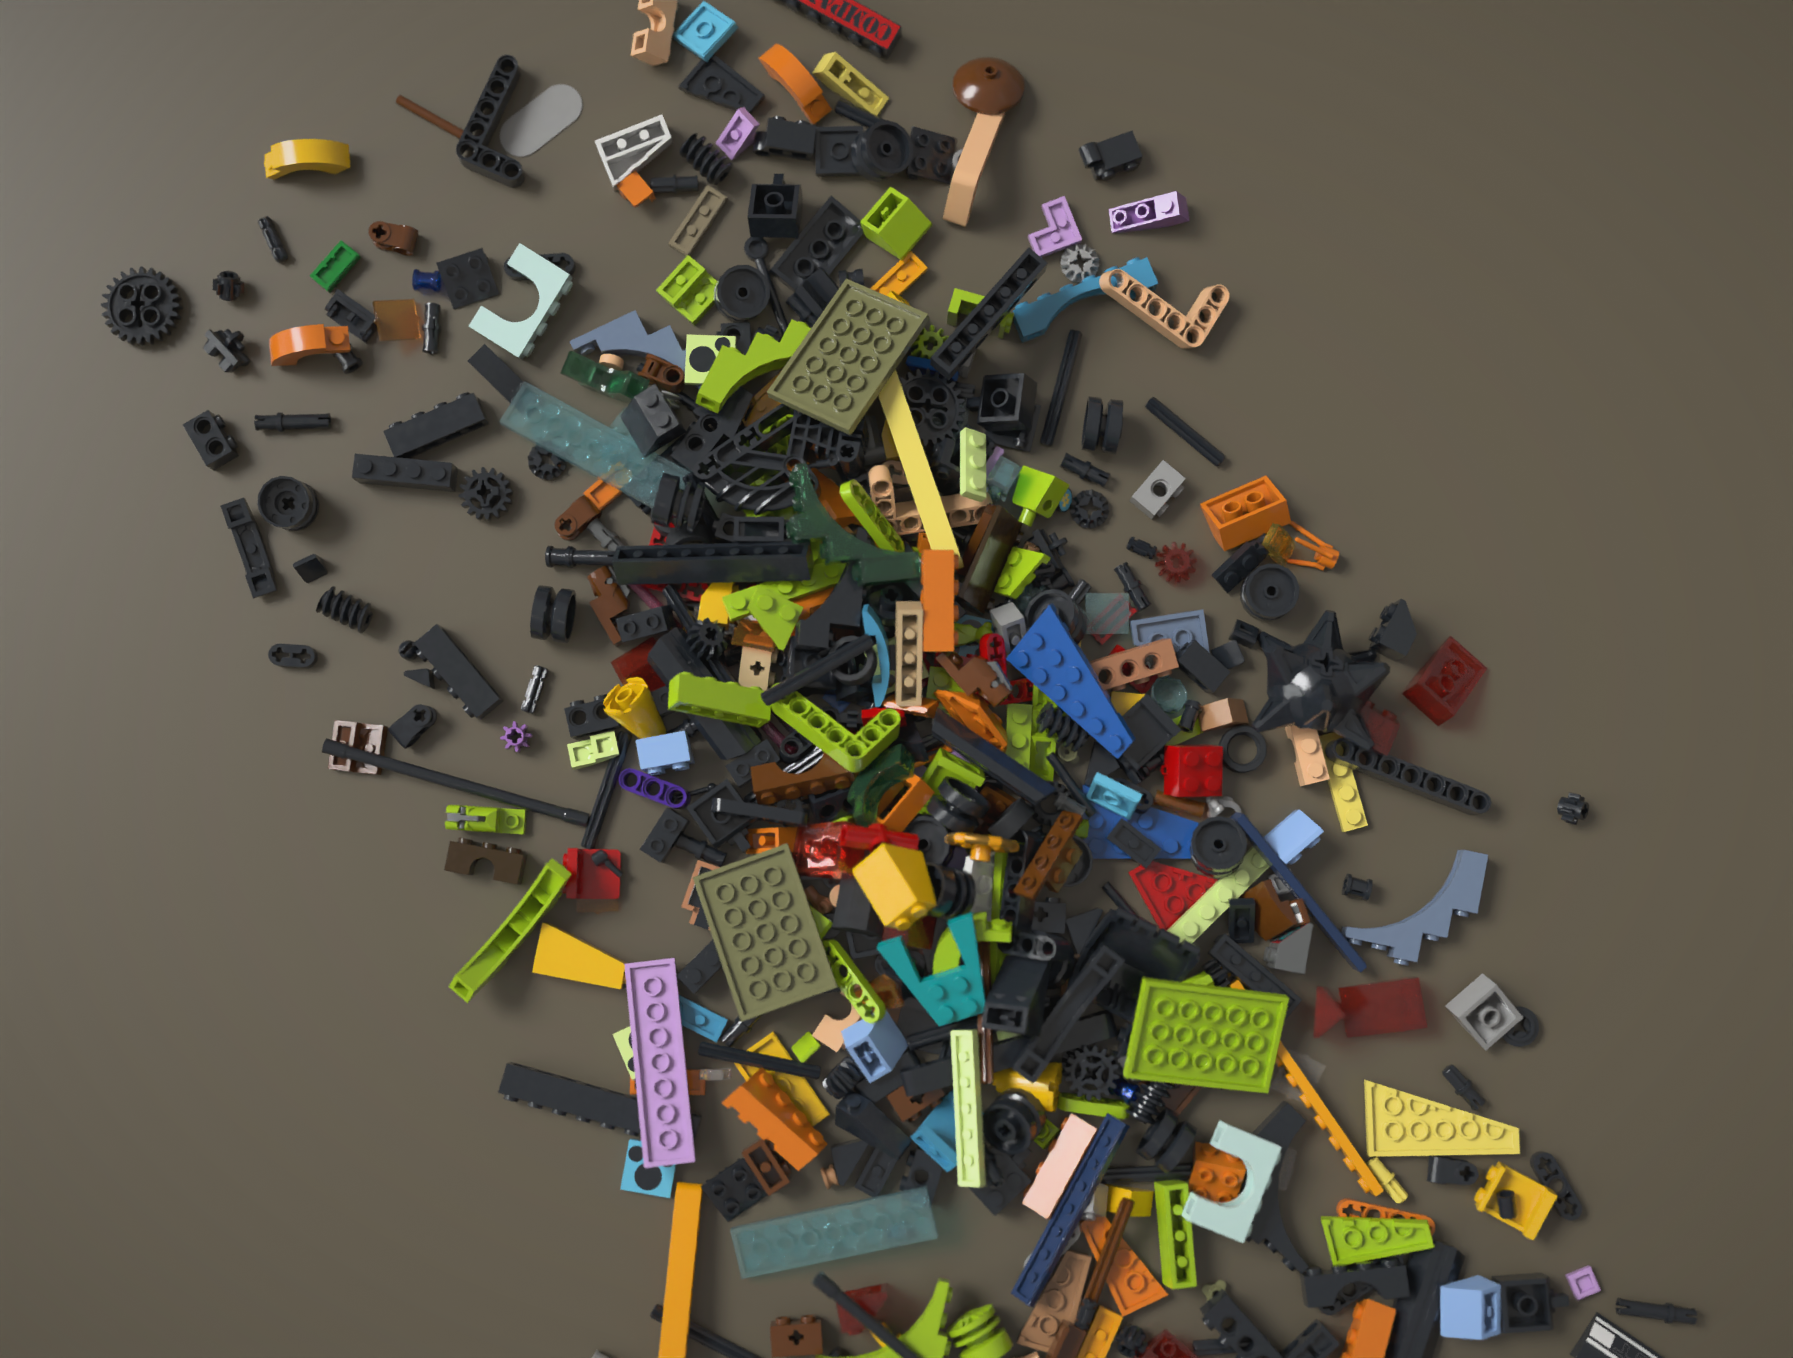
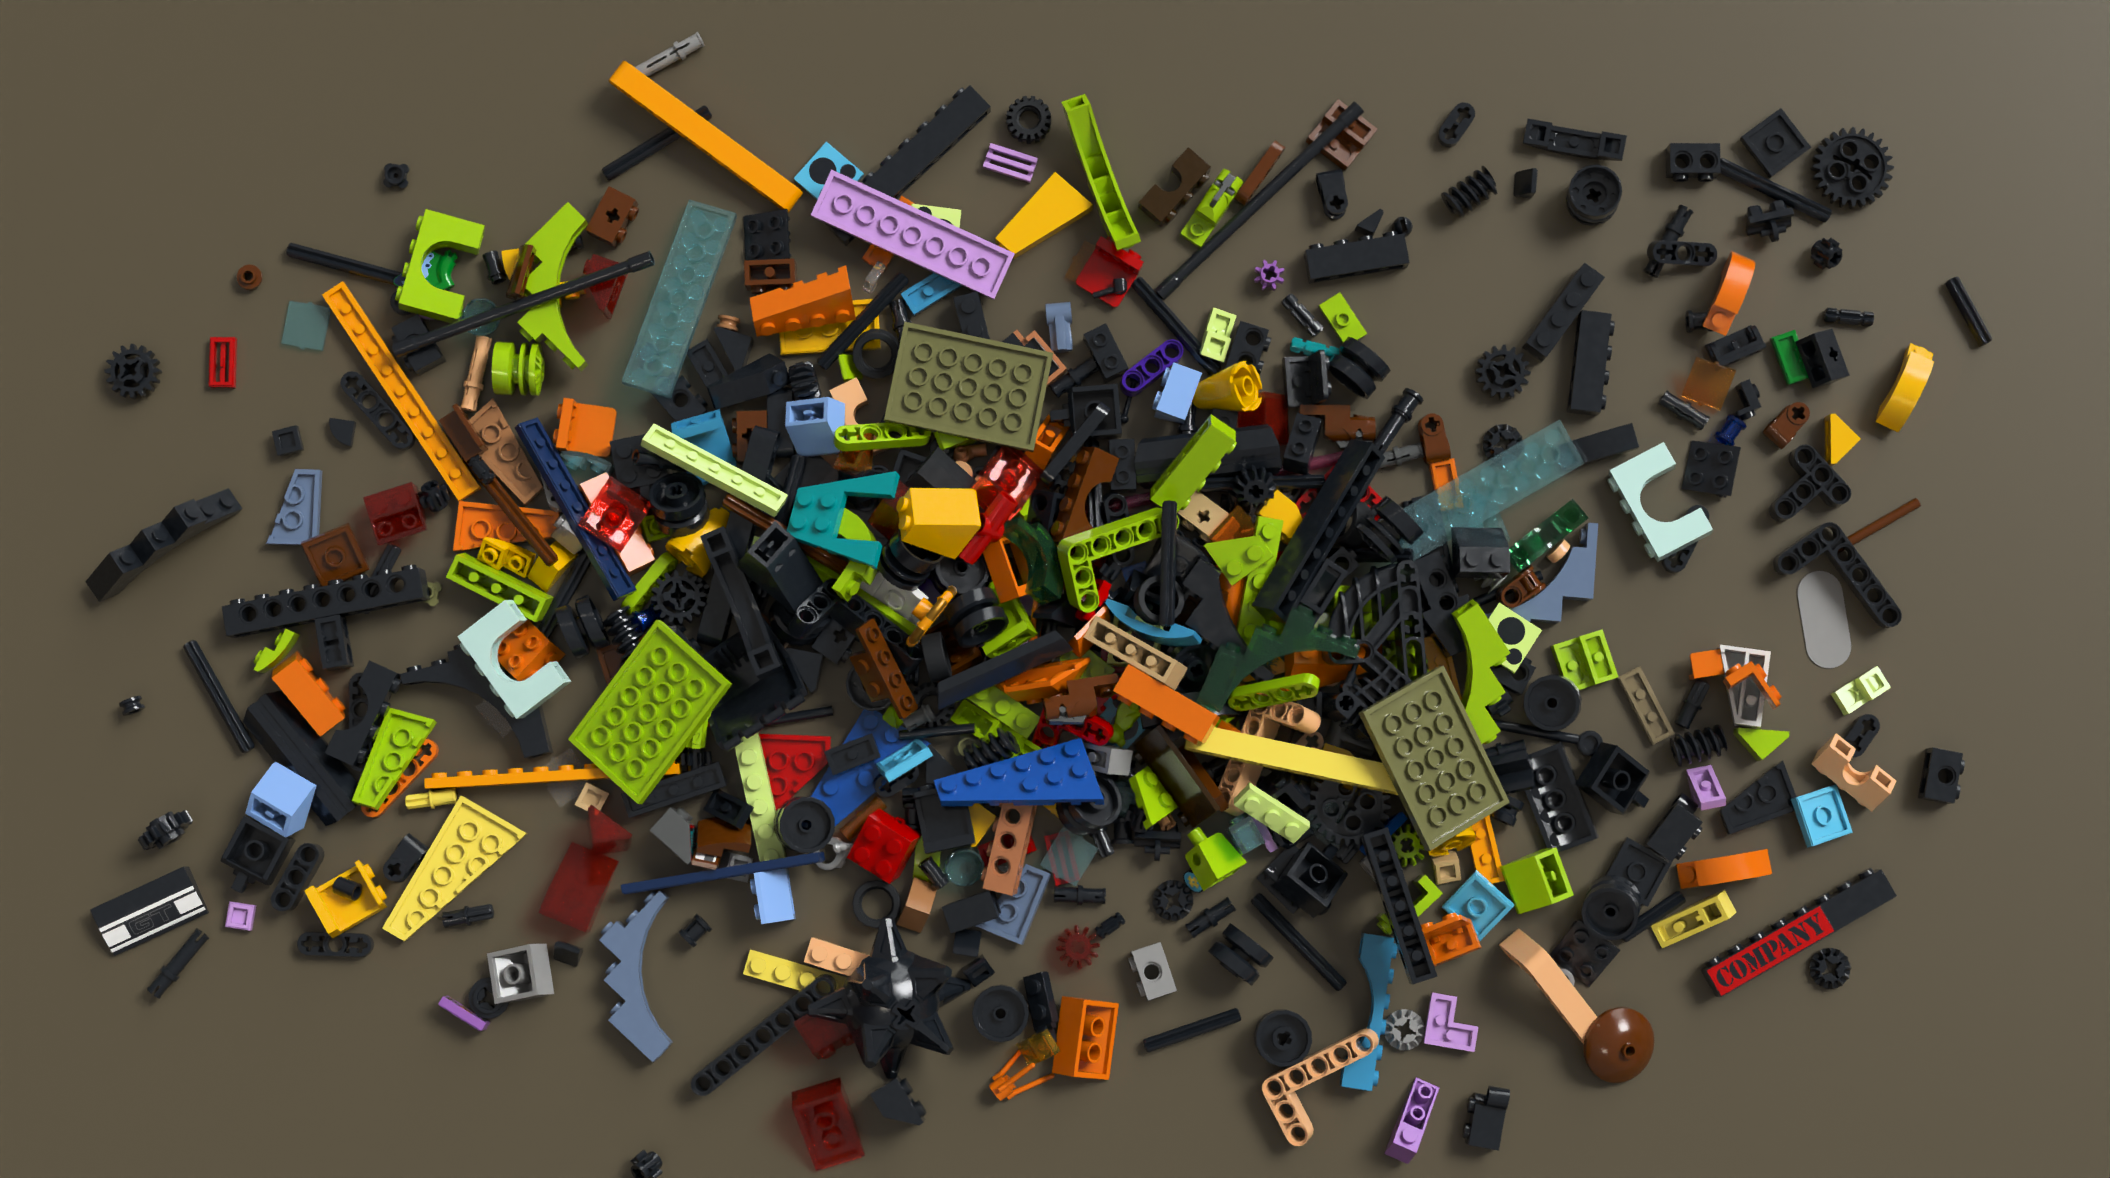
camera: 120 degrees right, 0 degrees up
(156, 381) = (1775, 143): none -> black plate
(198, 358) = (1774, 190): none -> black axle
(211, 146) = (1968, 311): none -> black axle
(297, 394) = (1673, 258): none -> black beam
(321, 239) = (1822, 358): none -> black brick
(383, 189) = (1838, 439): none -> yellow slope
(388, 281) = (1749, 397): none -> black bracket
(431, 797) = (1259, 173): none -> reddish brown beam
(433, 192) = (1810, 484): none -> black beam
(514, 1023) = (1022, 106): none -> black tyre
(518, 654) = (1342, 318): none -> lime plate
(535, 1013) = (1018, 155): none -> lavender tile
(558, 662) = (1311, 347): none -> teal axle
(582, 58) = (1860, 690): none -> yellowish green slope
(588, 651) = (1306, 379): none -> black bracket
(621, 32) = (1867, 737): none -> black beam
(631, 152) = (1738, 674): none -> orange bracket
(659, 892) = (1059, 320): none -> sand blue piece
(674, 110) = (1760, 742): none -> lime slope
(799, 1027) = (867, 336): none -> black tyre
(929, 303) = (1446, 868): none -> tan slope
(944, 260) = (1479, 902): none -> medium azure tile
(984, 262) = (1450, 938): none -> orange bracket
(994, 1245) = (585, 428): none -> orange bracket
(1024, 1230) = (581, 460): none -> clear light blue slope
(1055, 1171) = (615, 514): none -> clear red slope
(1134, 357) = (1298, 1037): none -> black wheel
(1145, 1250) = (507, 555): none -> yellow slope
(1302, 1042) = (591, 796): none -> tan plate
(1440, 983) = (567, 953): none -> black slope
(1533, 1258) = (286, 883): none -> black beam
(1545, 1039) = (463, 1013): none -> medium lavender tile

